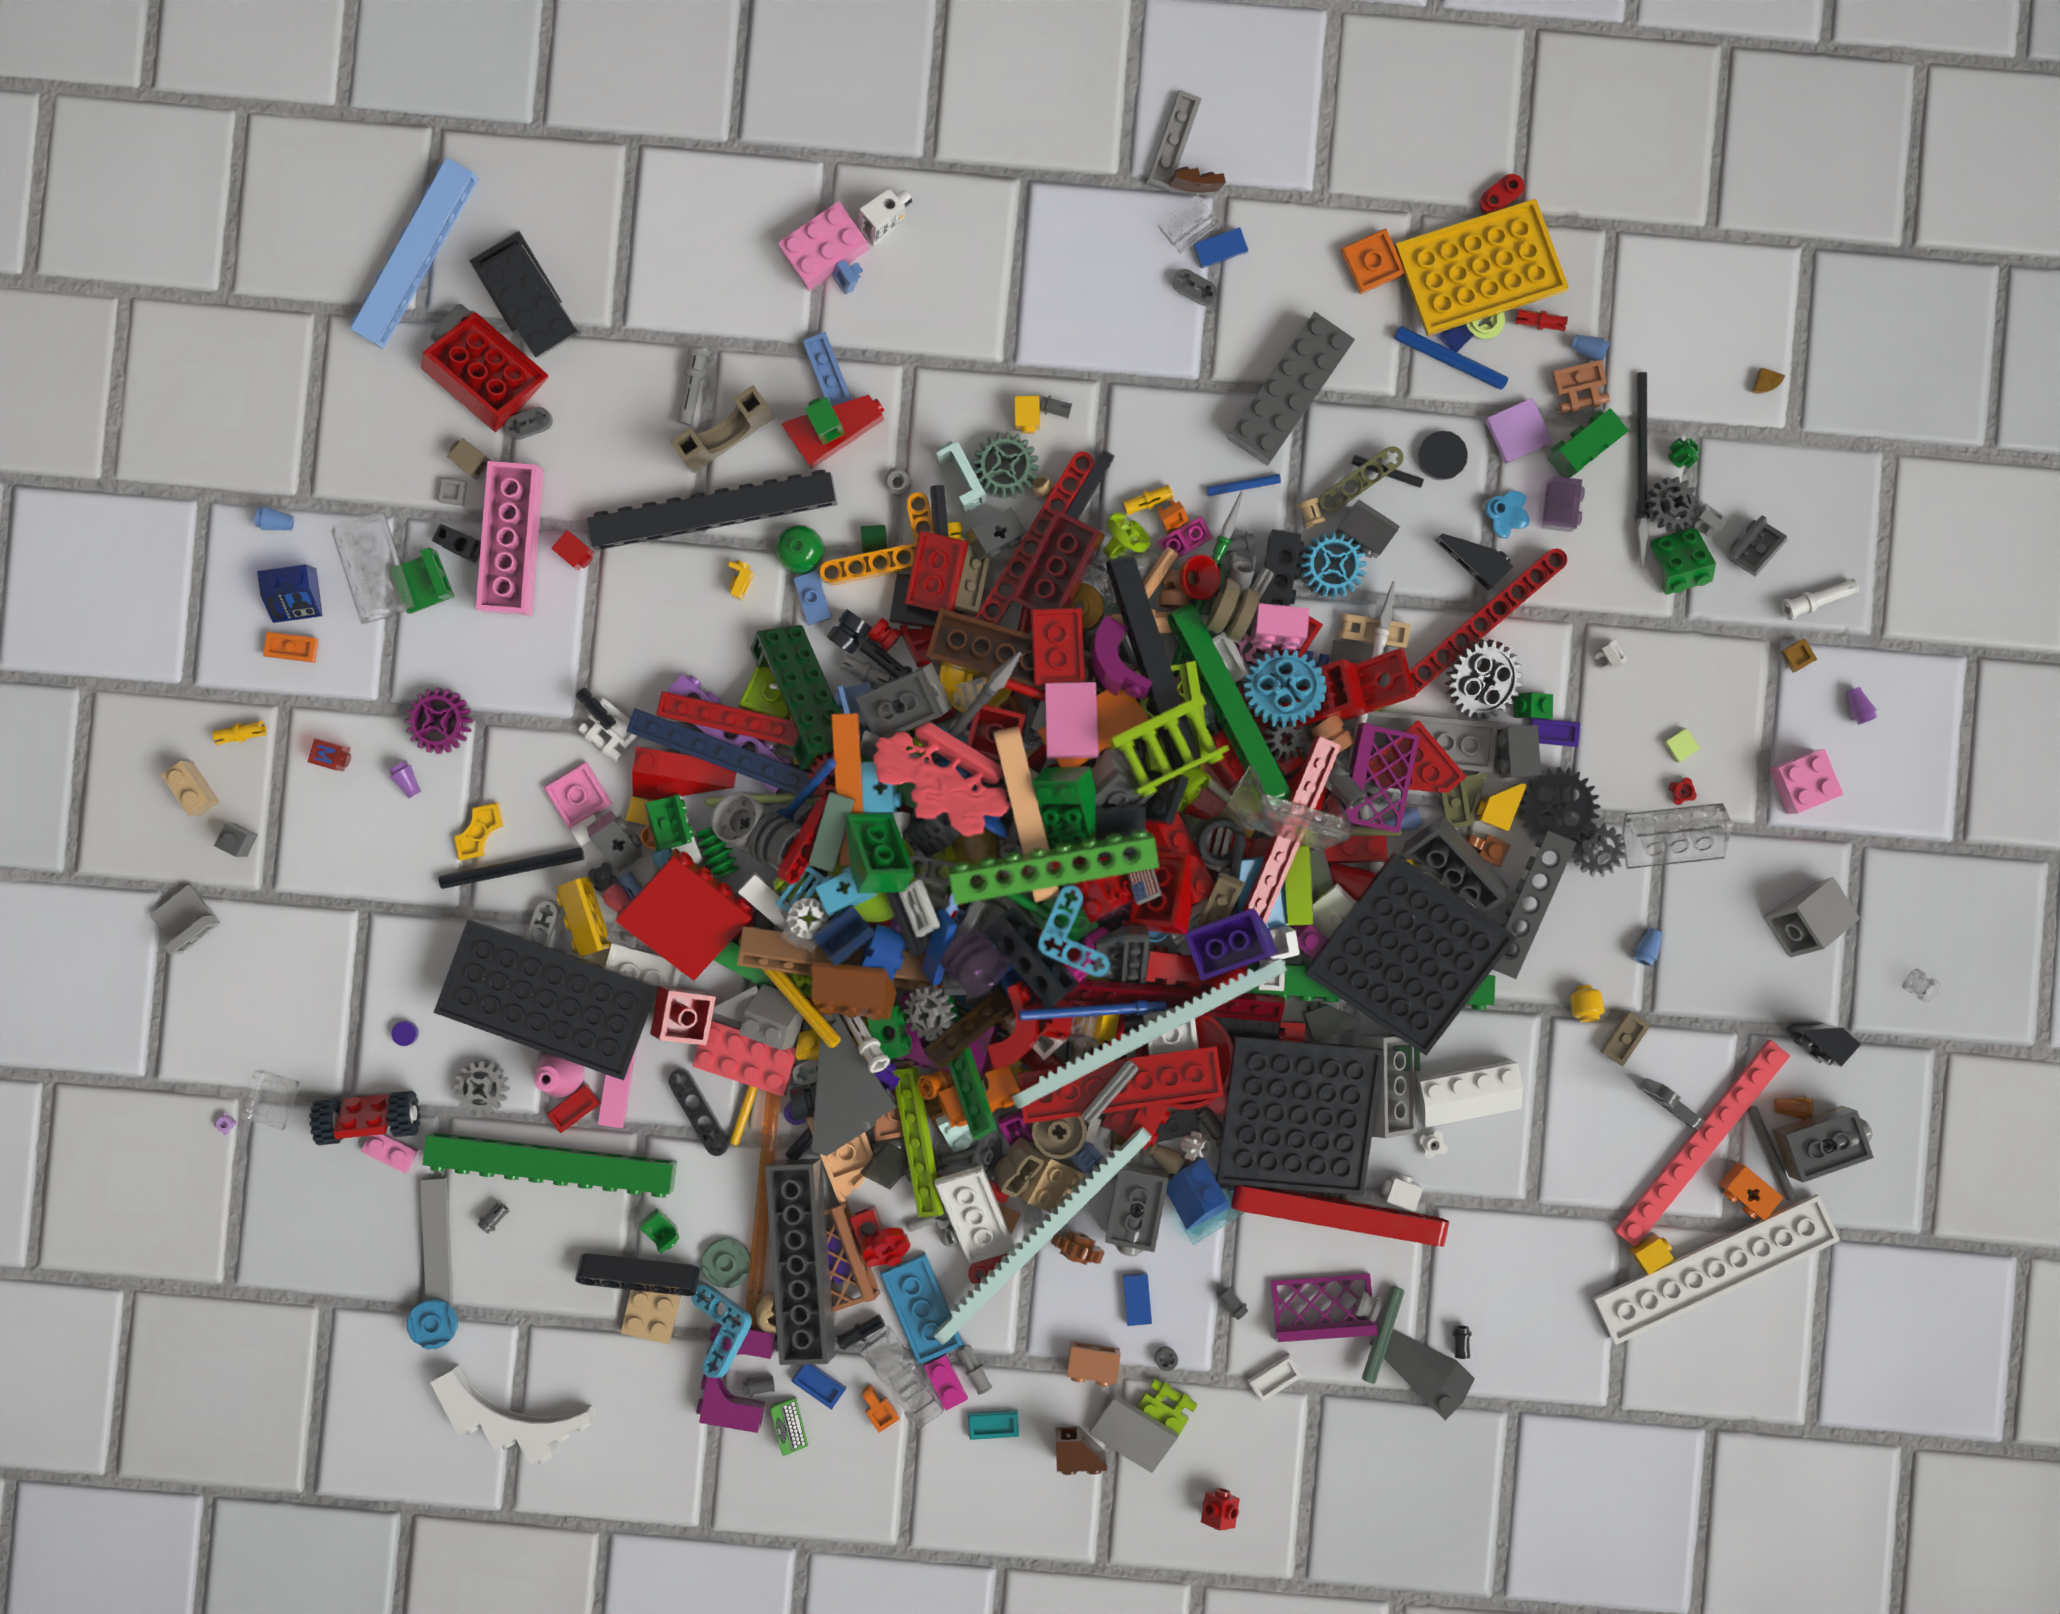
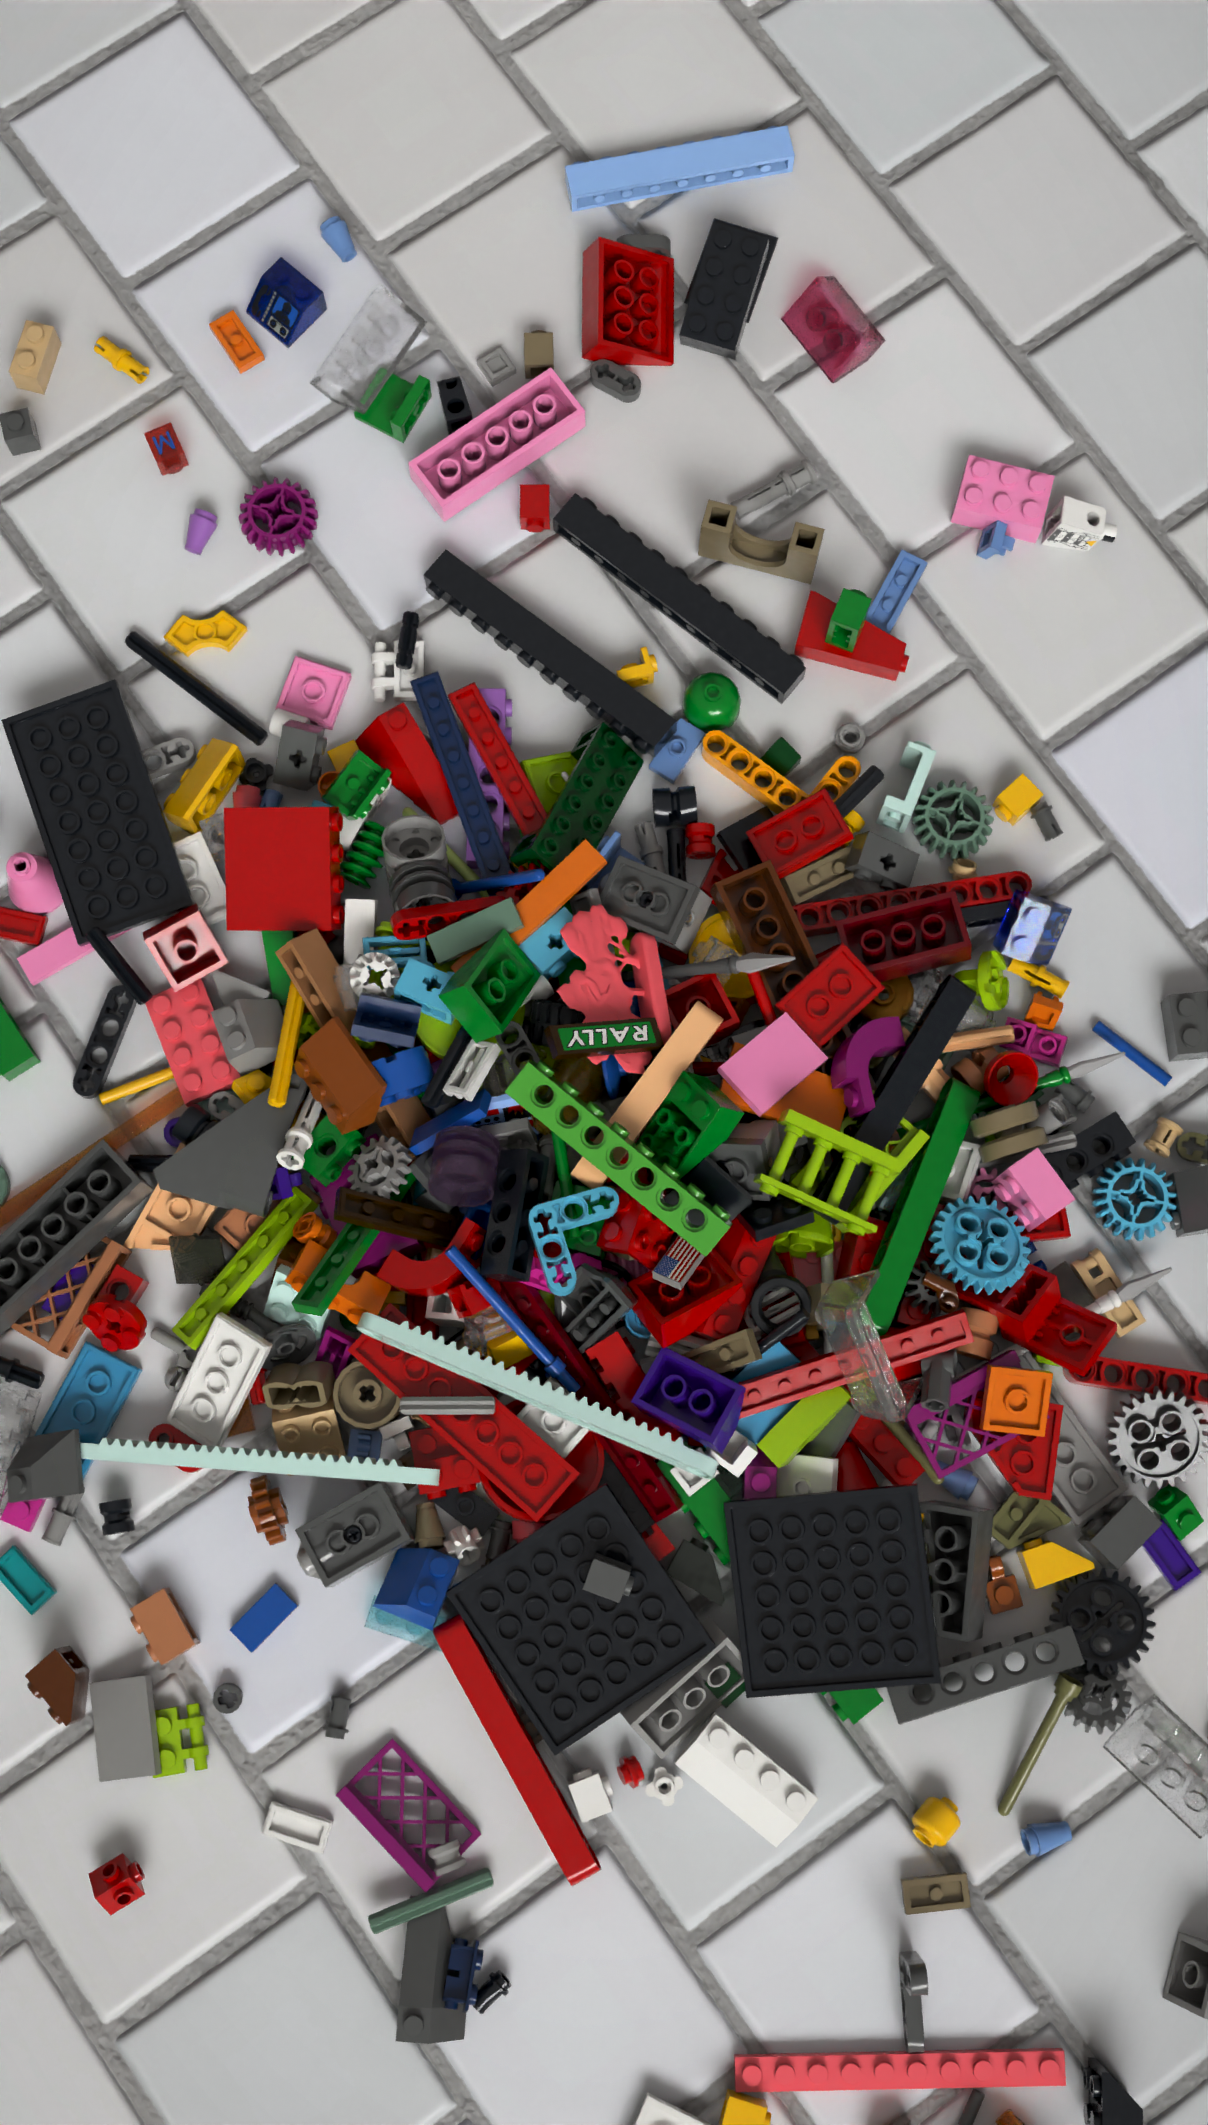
camera: 50 degrees right, 10 degrees down
(613, 251) = (832, 328): none -> clear pink slope
(636, 1066) = (118, 965): none -> black axle
(680, 625) = (550, 654): none -> black brick
(941, 1360) = (46, 1467): none -> dark grey slope
(971, 813) = (603, 1038): none -> tile
(1003, 1339) = (116, 1517): none -> black wheel
(1116, 480) = (1031, 928): none -> clear blue slope
(1293, 1081) = (609, 1578): none -> dark grey brick
(1296, 735) = (945, 1291): none -> reddish brown arm
(1394, 748) = (1016, 1400): none -> orange plate
(1408, 1157) = (630, 1771): none -> red plate
(1448, 1357) = (461, 1989): none -> dark blue hinge
(1580, 864) = (1066, 1689): none -> olive piece

